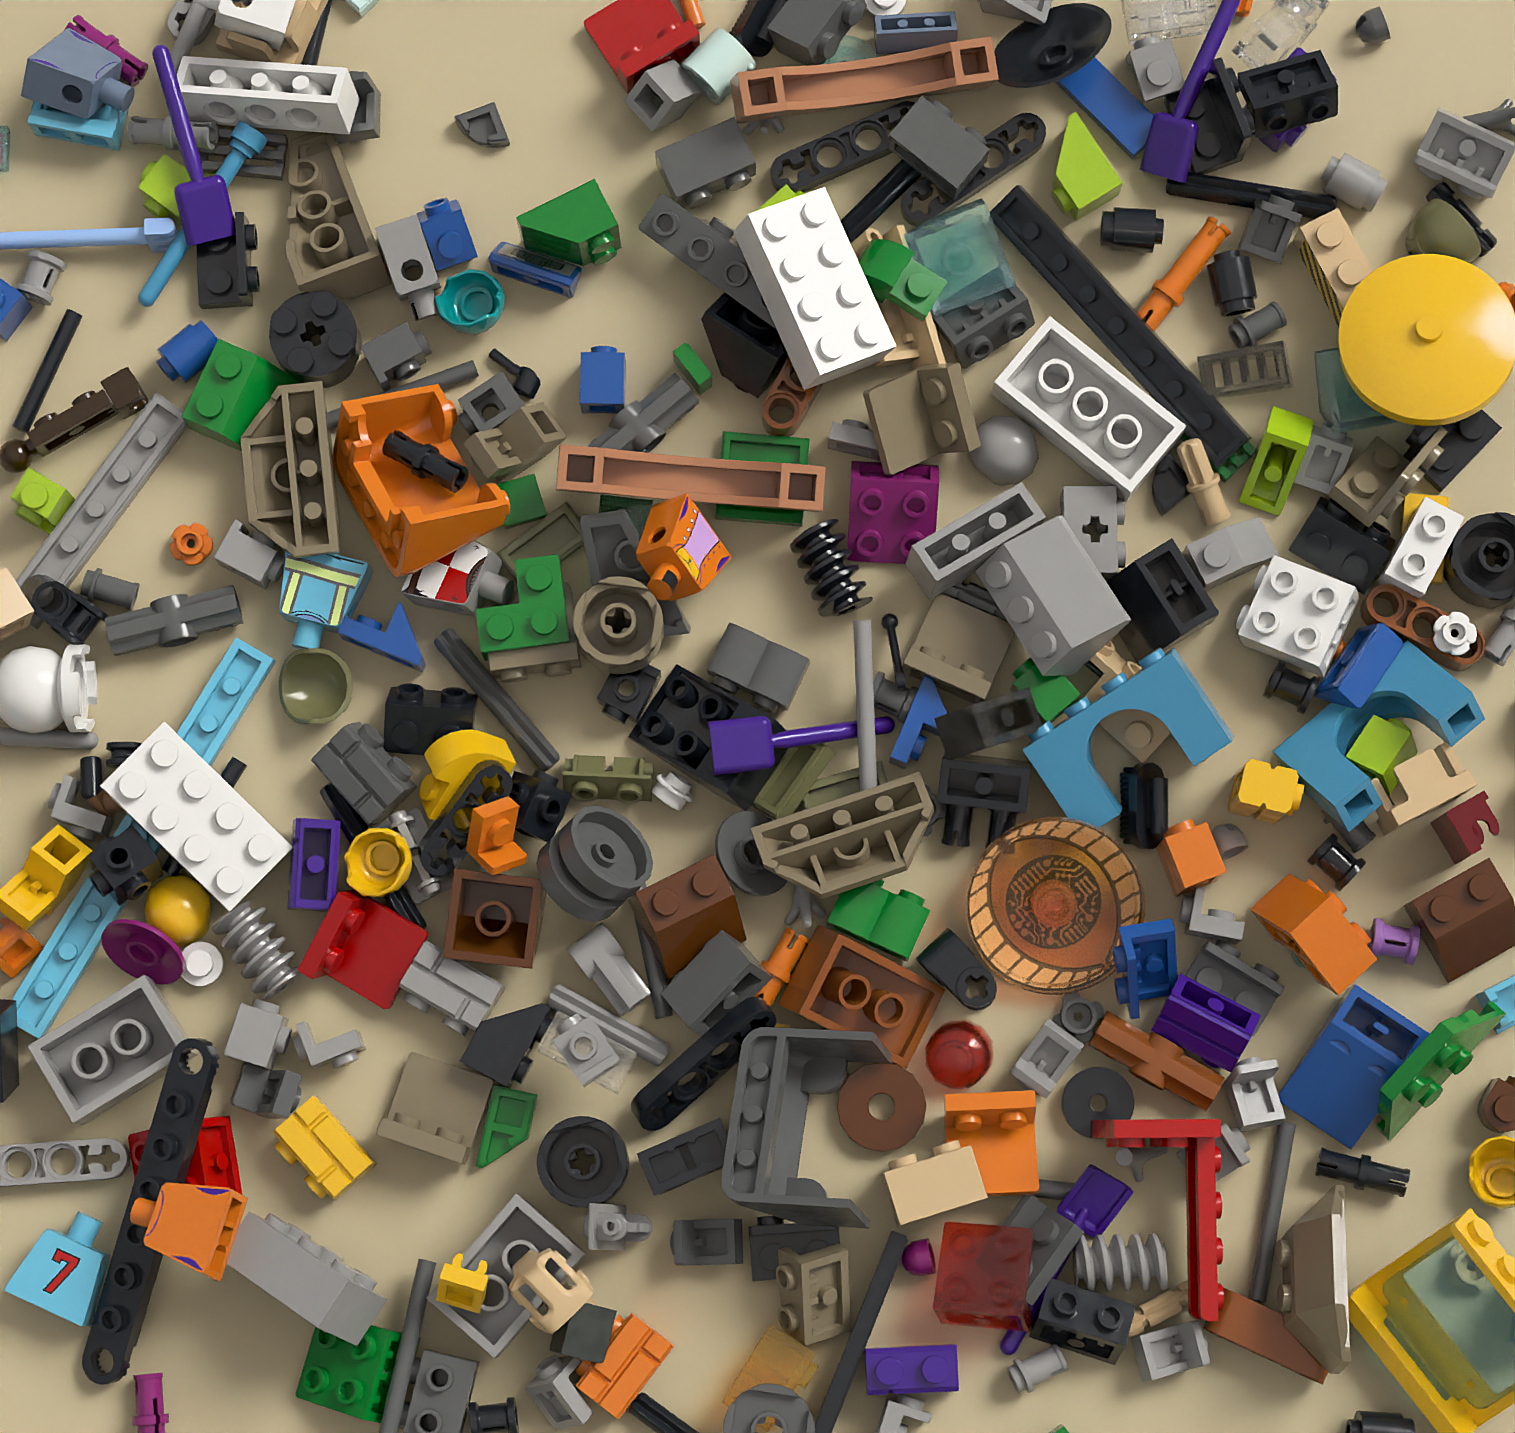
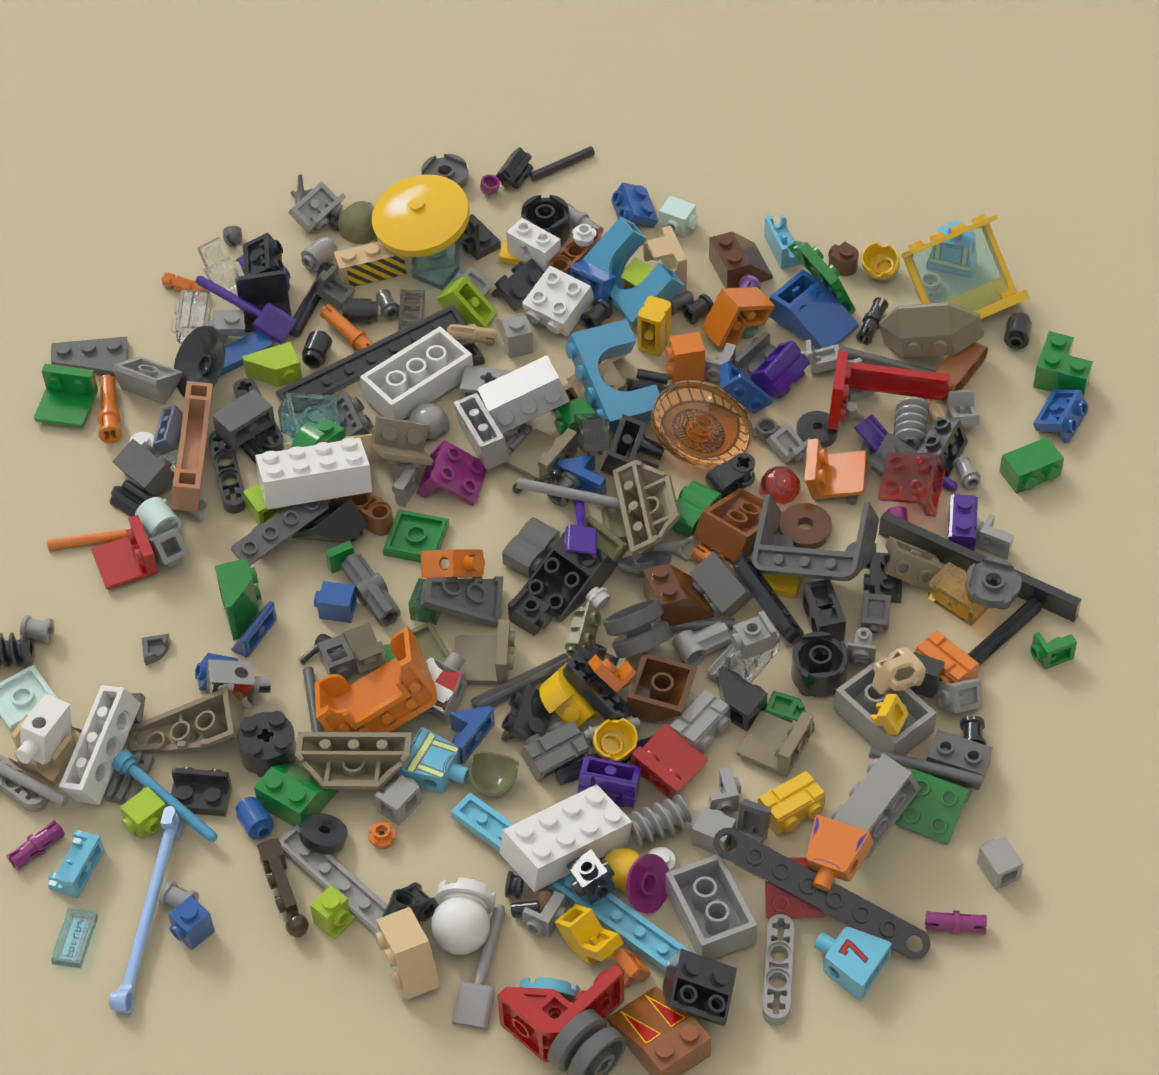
camera: 80 degrees left, 30 degrees down
(47, 371) = (243, 906): black bar -> none
(76, 76) = (52, 848): sand blue torso -> none
(109, 589) = (402, 879): dark grey pin -> none
(162, 132) = (105, 807): light grey pin -> none
(173, 620) = (431, 846): dark grey piece -> none
(195, 453) = (323, 833): none -> black piece
(203, 201) = (156, 785): dark purple piece -> none
(396, 354) = (291, 704): dark grey brick -> none
(425, 461) = (364, 688): black pin -> none
(471, 302) = (268, 659): teal hair -> none
(539, 616) = (476, 643): green brick -> none
(602, 606) = (494, 591): dark tan brick -> none
(704, 479) = (406, 567): nougat arch -> none
(706, 164) = (216, 531): dark grey brick -> none
(829, 570) = (481, 505): black piece -> none
(934, 1183) = (856, 486): tan brick -> none
(1156, 1061) = (798, 396): dark orange piece -> none
(1161, 600) = (533, 346): black slope -> none
(1378, 476) = (495, 255): dark tan bracket -> none
(1460, 829) = (694, 244): dark red hinge -> none

